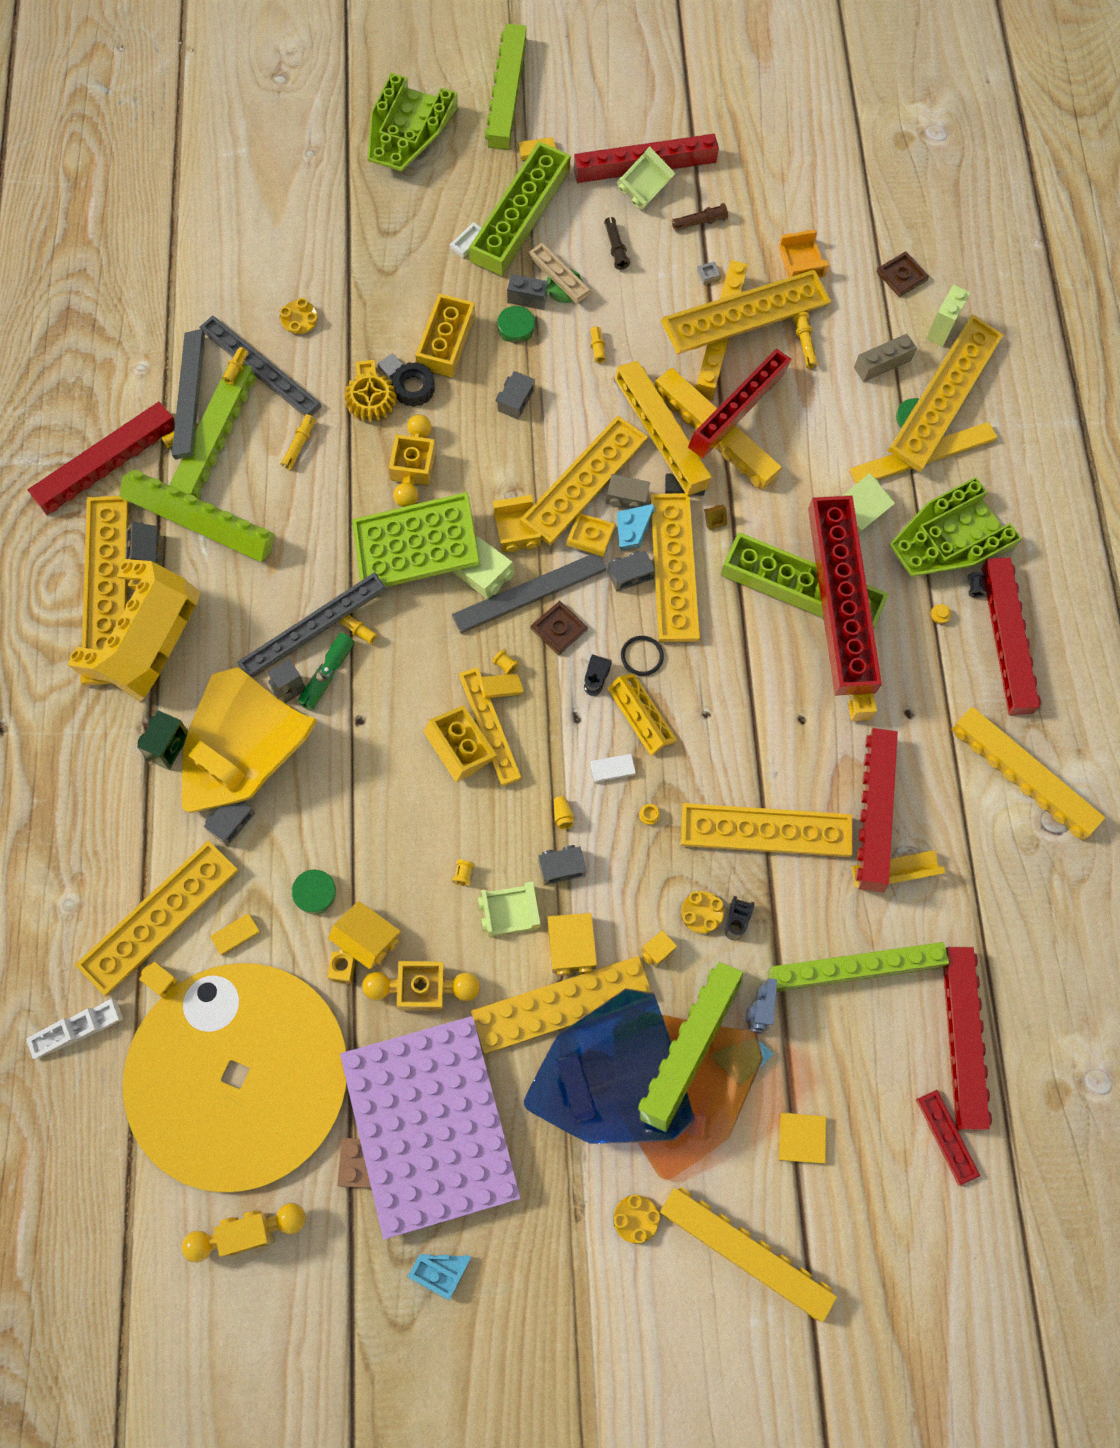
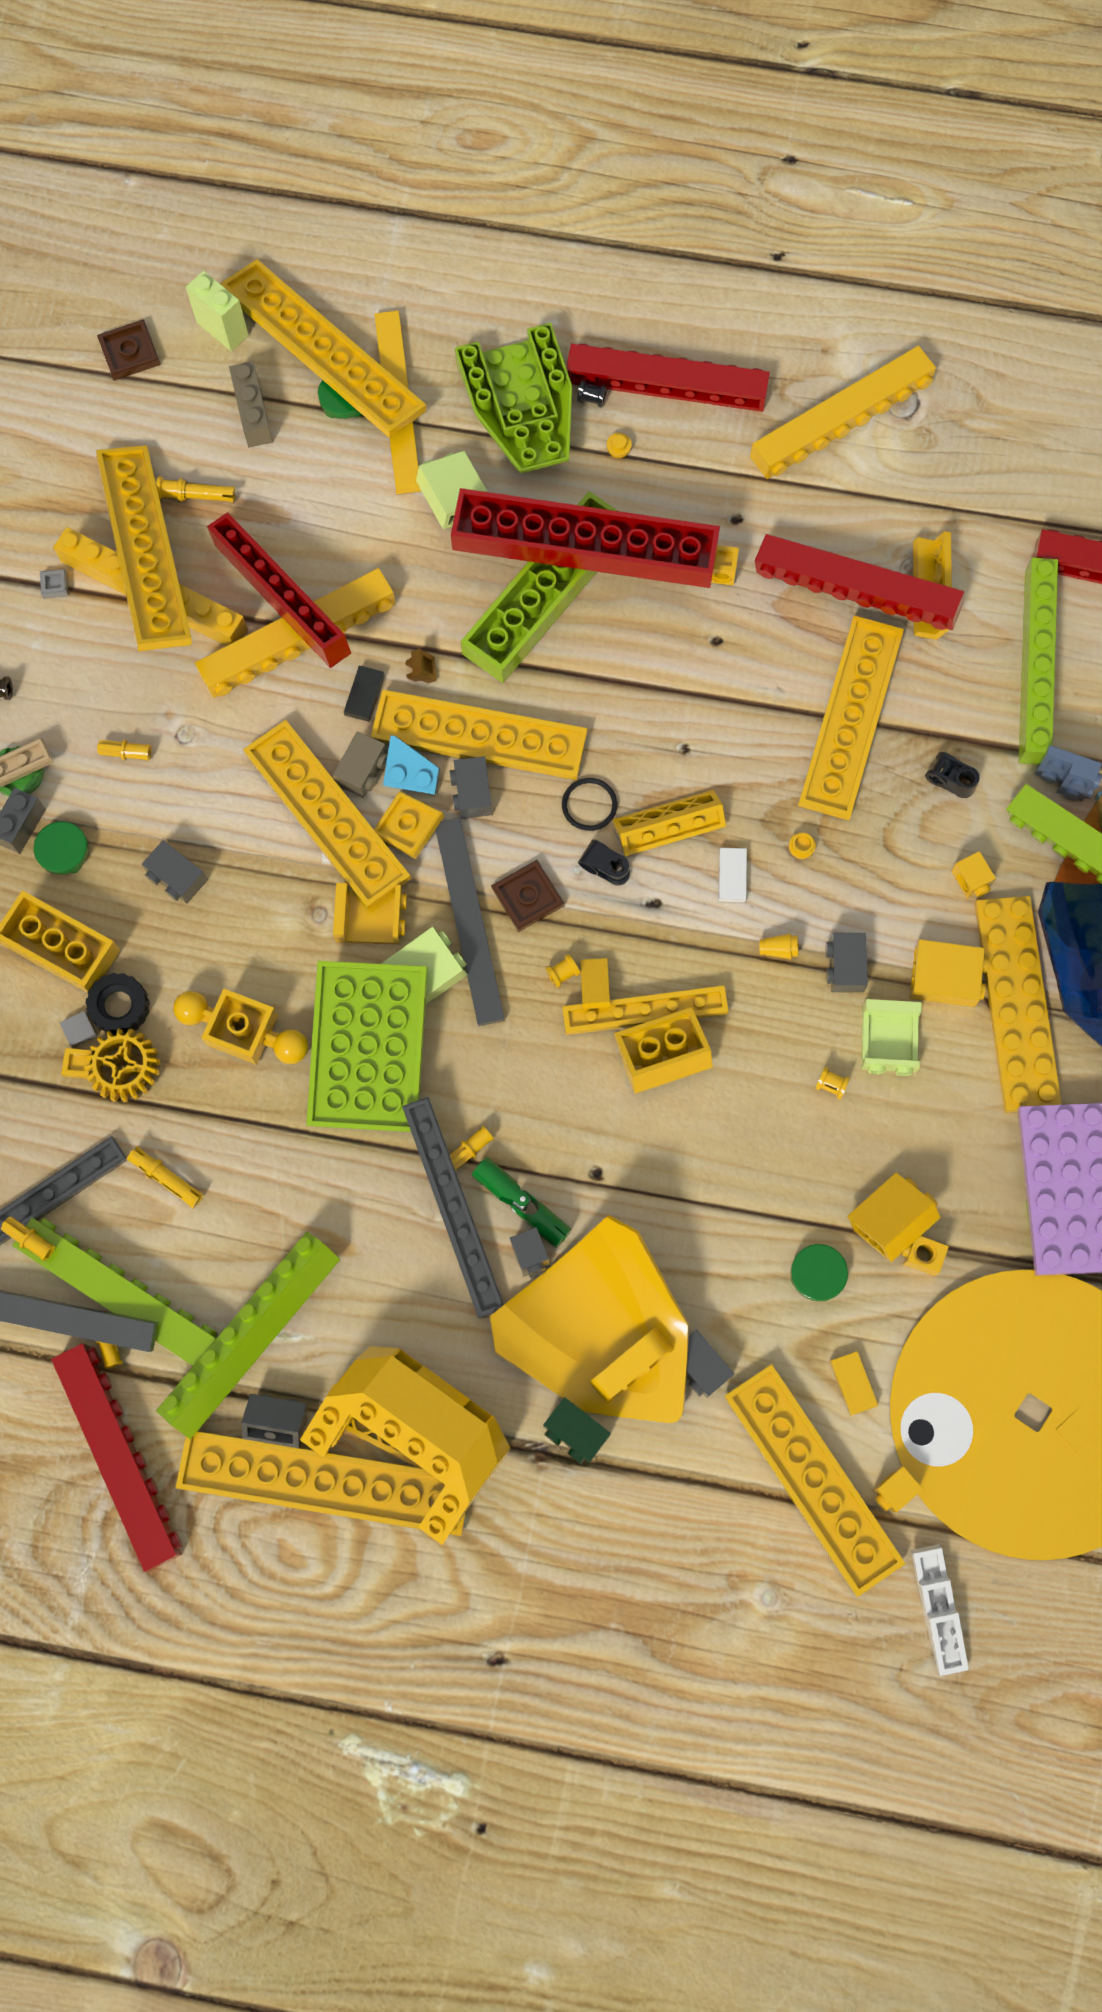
camera: 70 degrees left, 5 degrees up
(410, 974) = (985, 1152): yellow brick -> none
(662, 428) = (277, 697): yellow brick -> none
(702, 912) = (937, 815): yellow dish -> none
(802, 253) = (65, 461): light orange panel -> none

